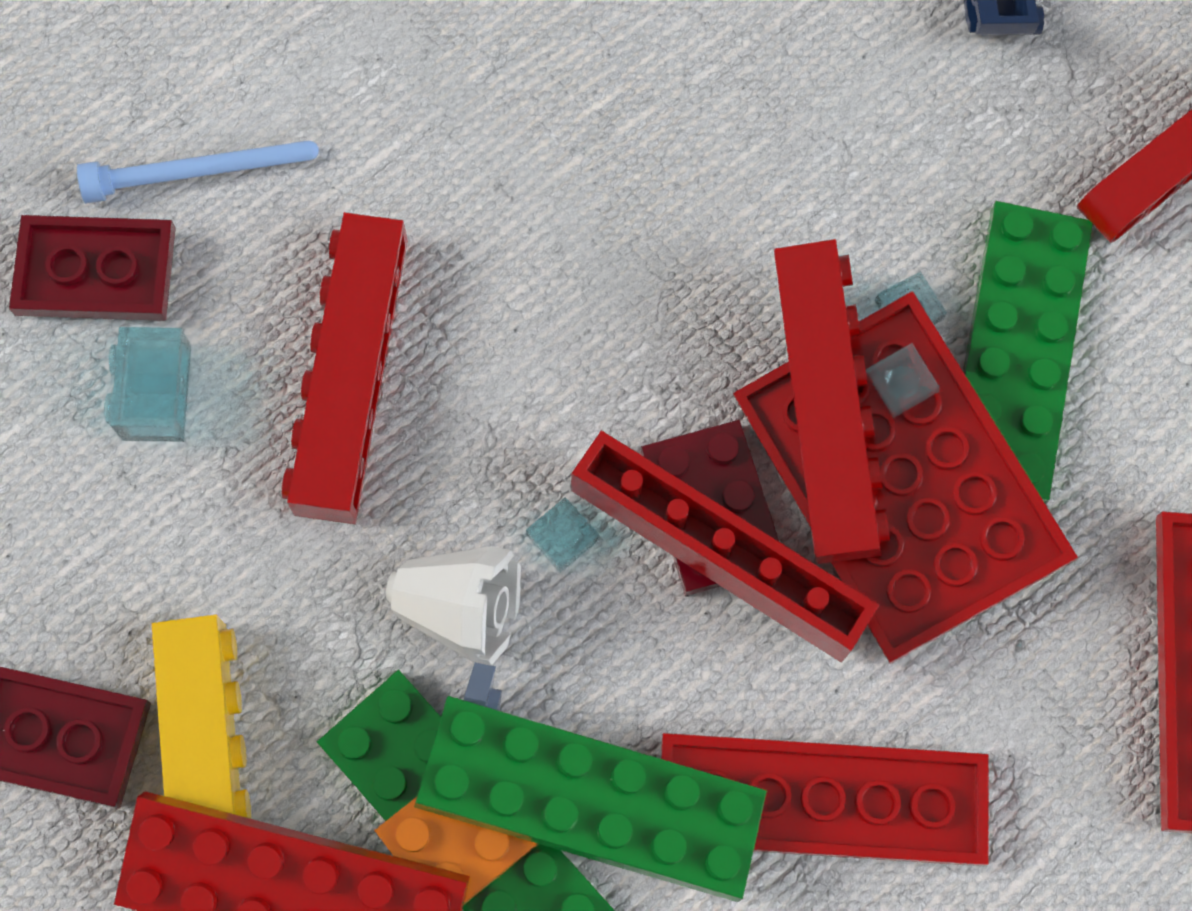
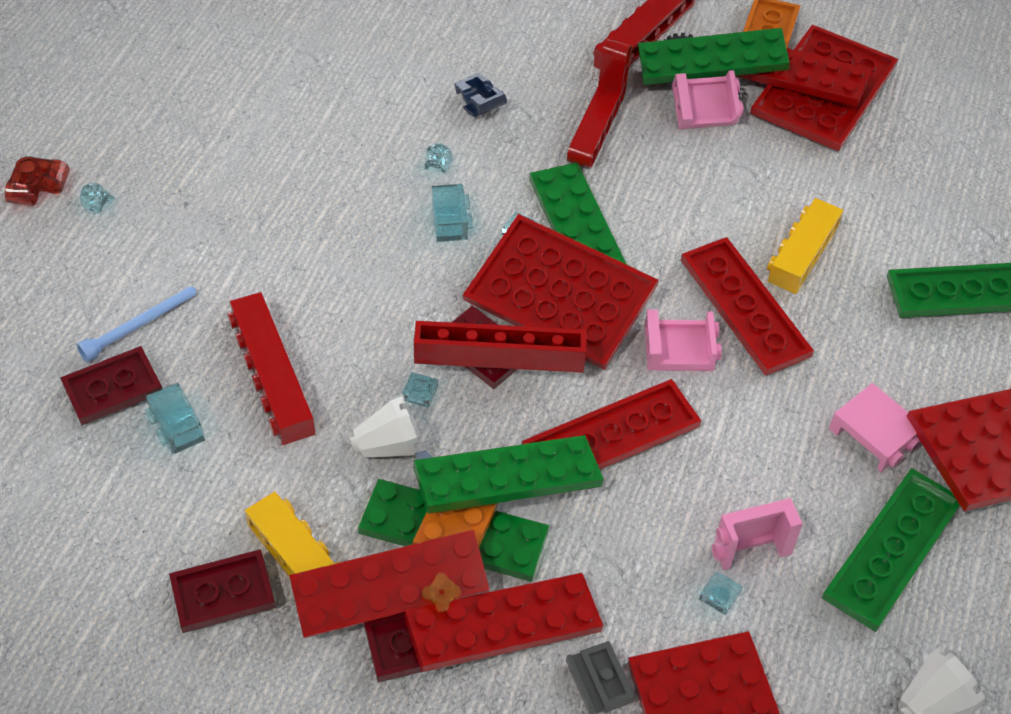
camera: 30 degrees left, 20 degrees down
(811, 205) = (450, 212): none -> clear light blue brick
(827, 402) = (508, 269): red brick -> none
(854, 90) = (438, 157): none -> clear light blue arm
(902, 380) = (537, 246): clear light blue plate -> none
(1053, 687) = (681, 343): none -> bright pink panel

